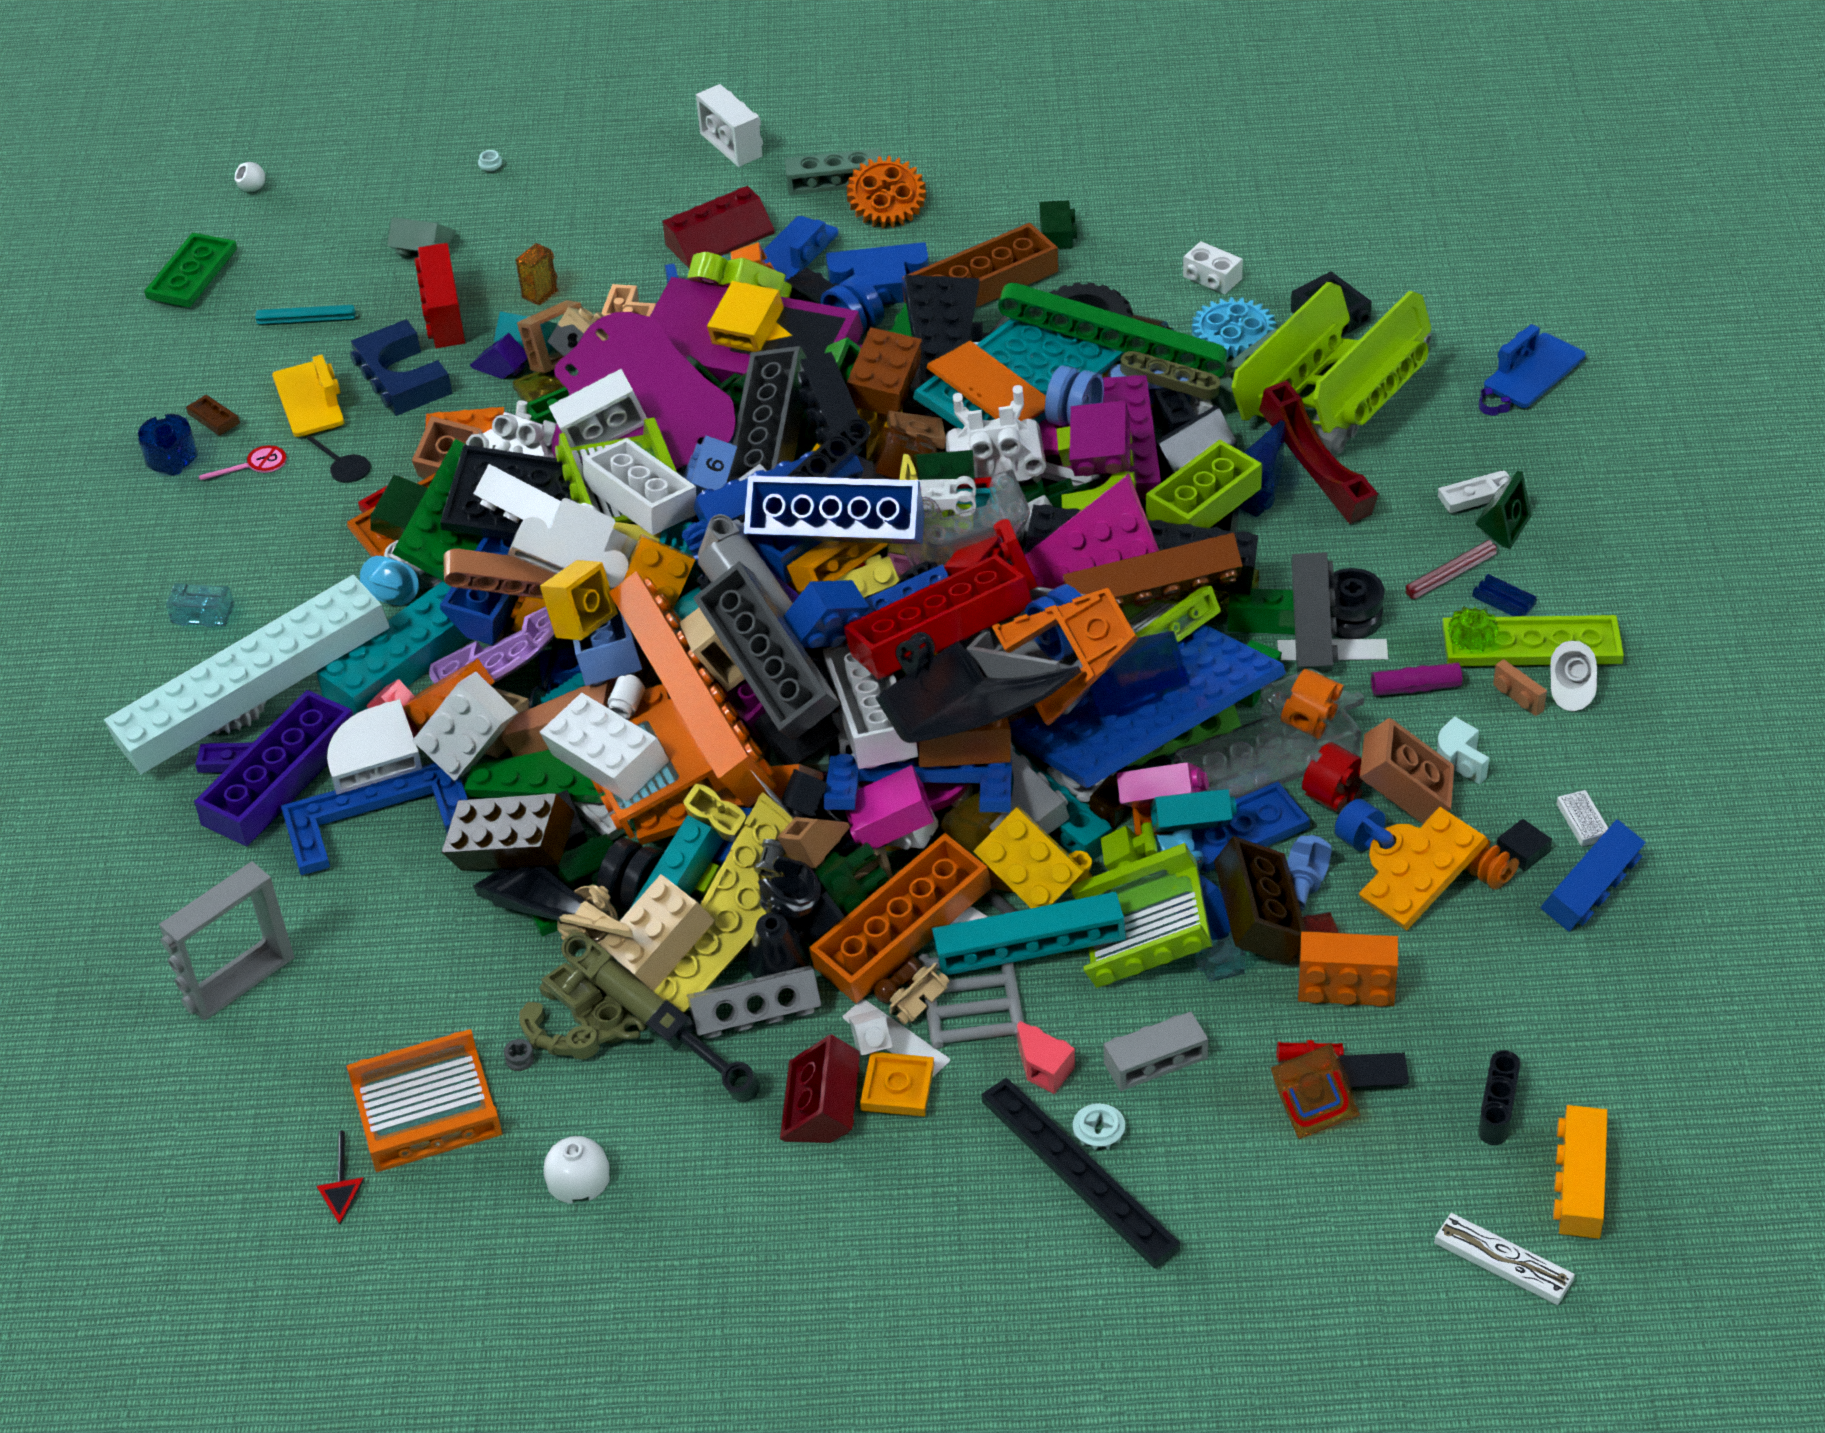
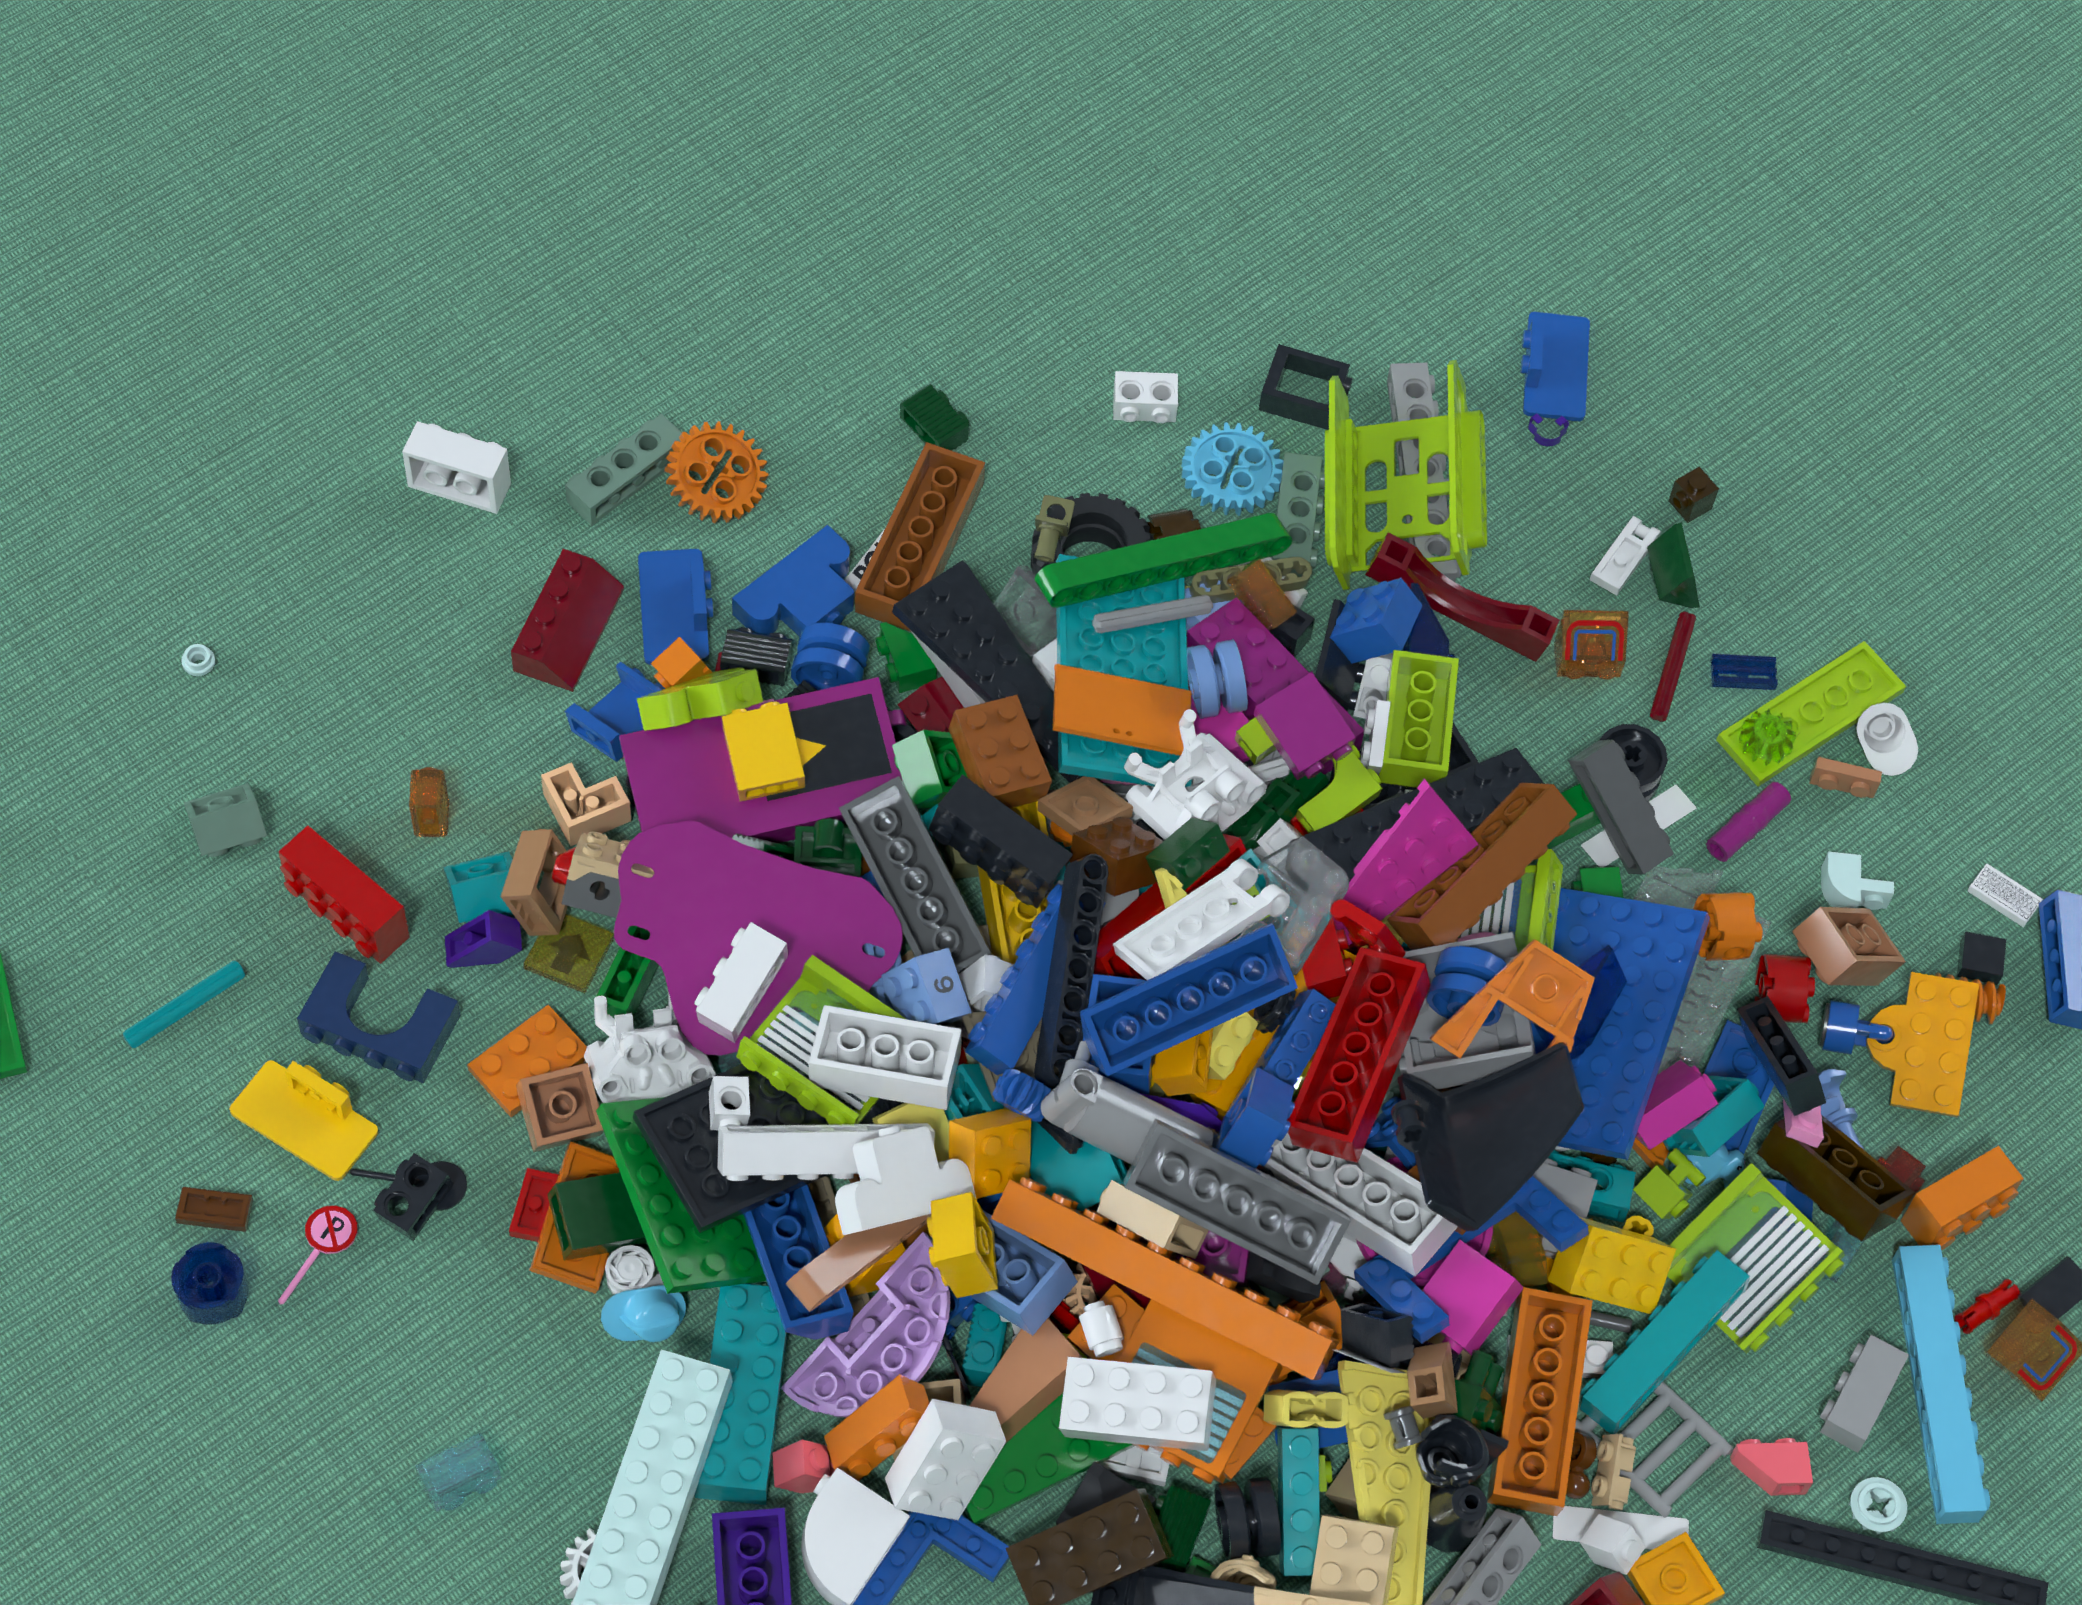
camera: 45 degrees left, 15 degrees up
(322, 458) = (420, 1200): none -> black brick
(523, 463) = (729, 1091): none -> white brick
(1056, 286) = (1051, 528): none -> olive bracket
(1072, 352) = (1152, 614): none -> light grey axle
(1157, 469) = (1376, 727): none -> white plate
(1160, 377) = (1261, 594): none -> clear orange brick
(1219, 1078) = (1940, 1385): none -> medium azure brick
(1231, 423) = (1376, 620): none -> blue brick
(1262, 846) = (1804, 1127): none -> bright pink plate
(1276, 798) = (1781, 1056): none -> black brick
(1393, 521) = (1591, 644): none -> clear orange slope
(1563, 477) = (1693, 494): none -> dark brown brick

